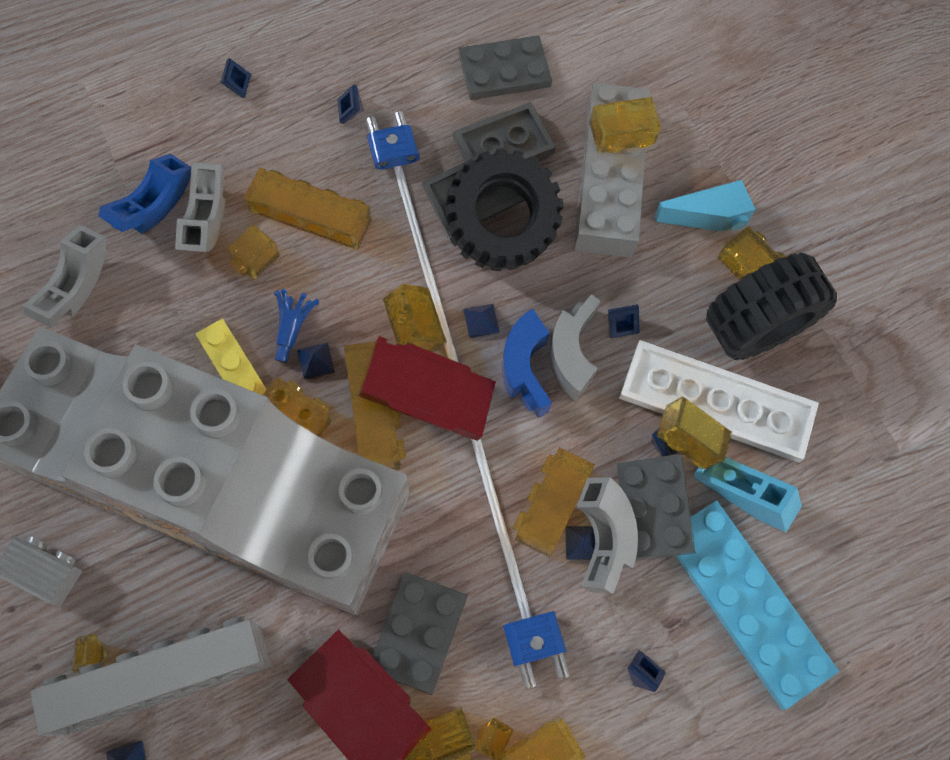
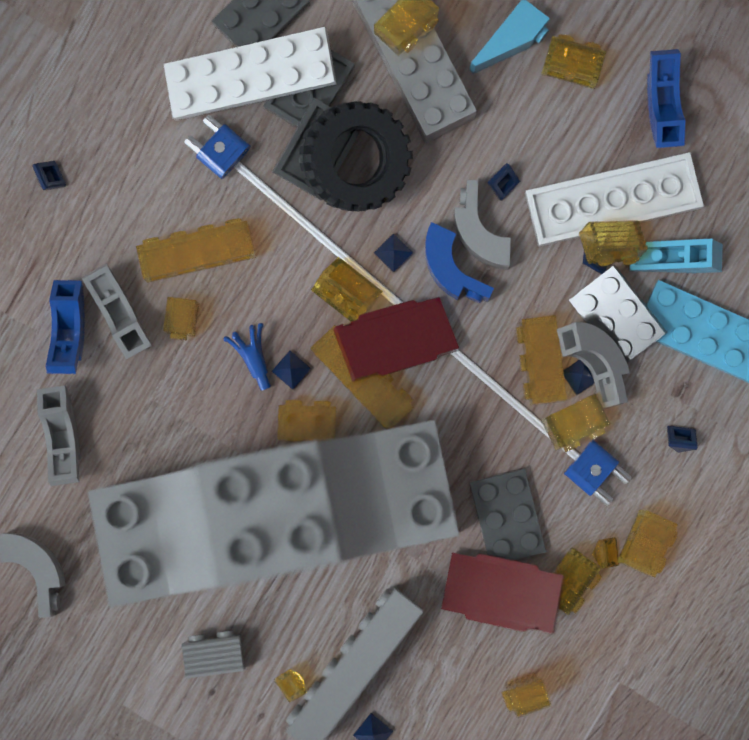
camera: 25 degrees left, 15 degrees up
(229, 357) = (231, 415): light yellow plate -> none
(349, 104) = (159, 136): dark blue slope -> none
(462, 101) = (250, 73): none -> white plate
(548, 582) = (576, 422): none -> clear yellow brick
(771, 306) = (613, 106): black tyre -> none
(822, 341) = (664, 99): none -> blue arch

